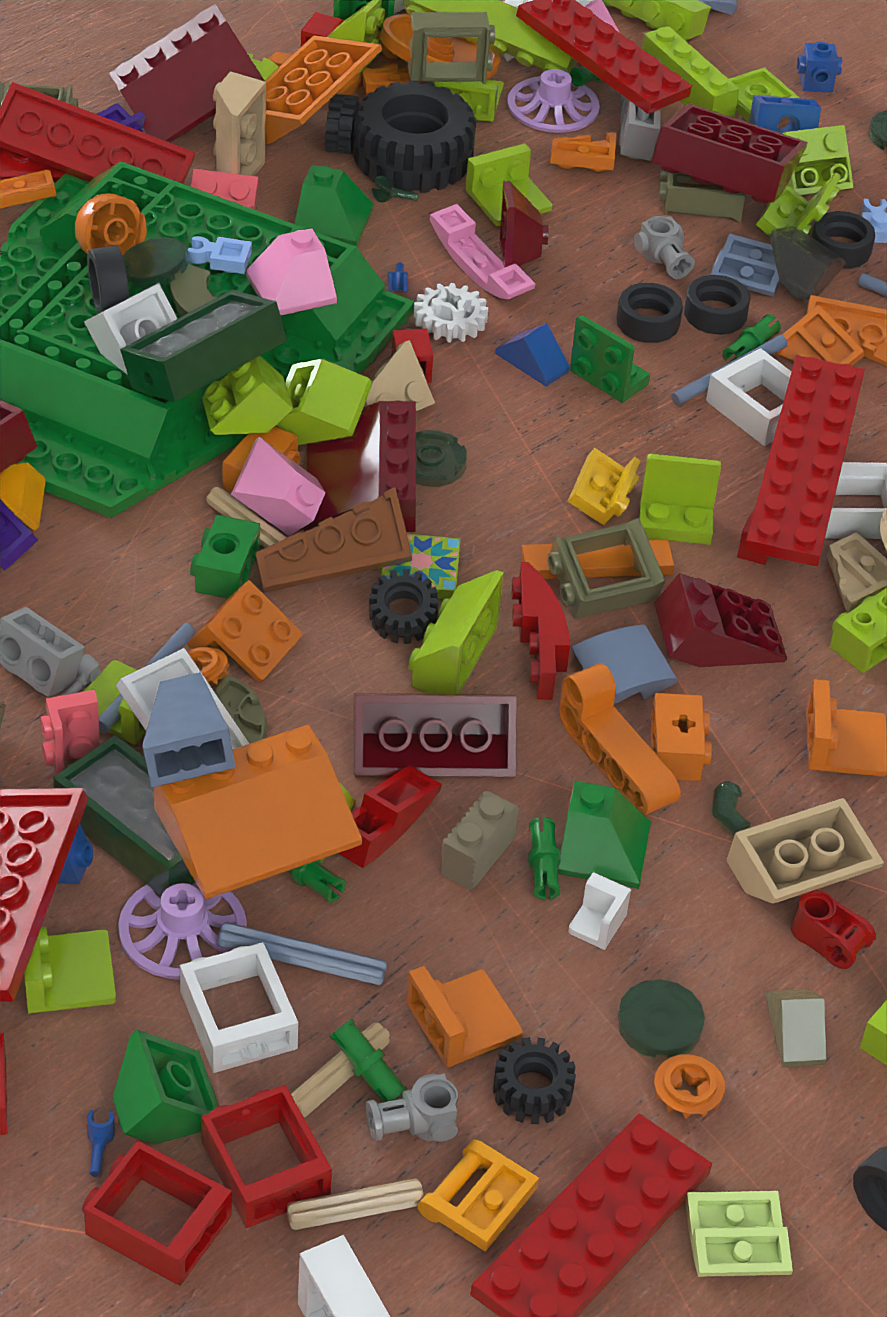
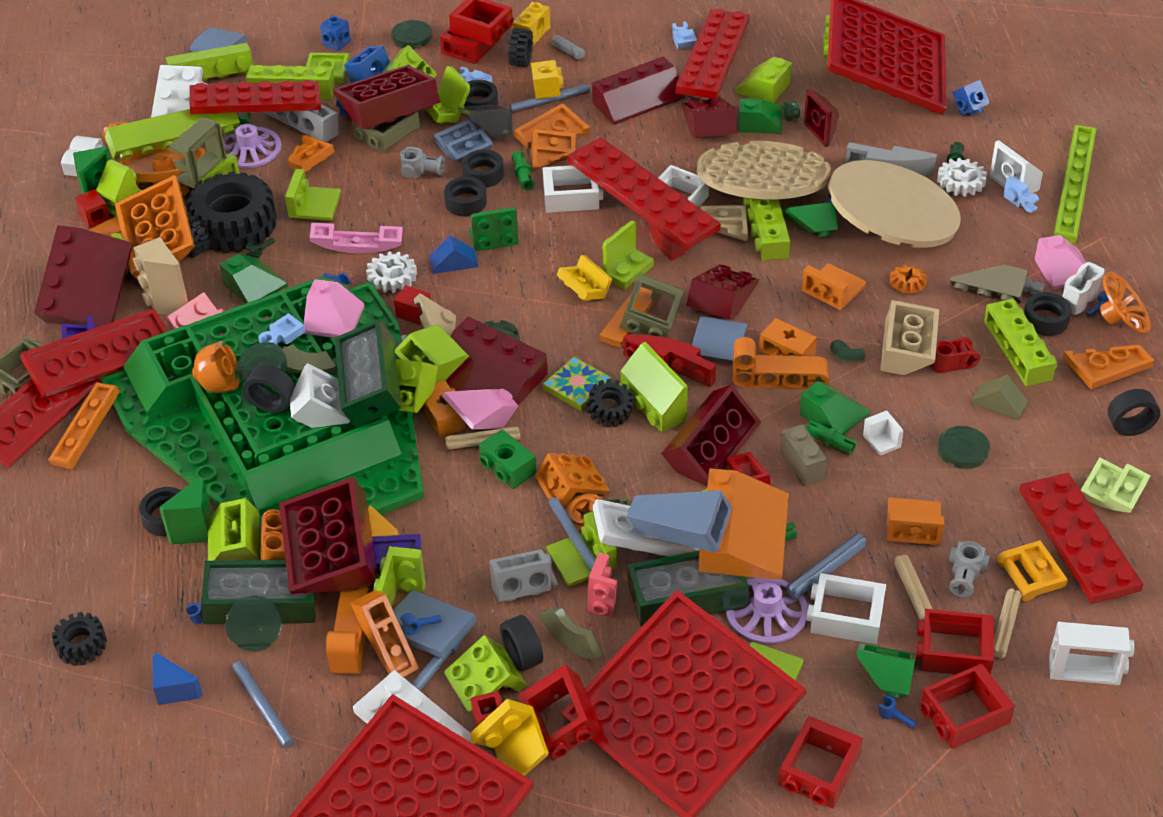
camera: 50 degrees left, 0 degrees up
(349, 544) = (546, 403): dark orange wing -> none
(368, 1062) = (925, 570): green pin -> none
(520, 228) = (355, 210): dark red slope -> none
(532, 1101) = (976, 502): black tyre -> none
(696, 1072) = (1024, 457): orange gear -> none
(702, 384) = (538, 190): sand blue bar -> none

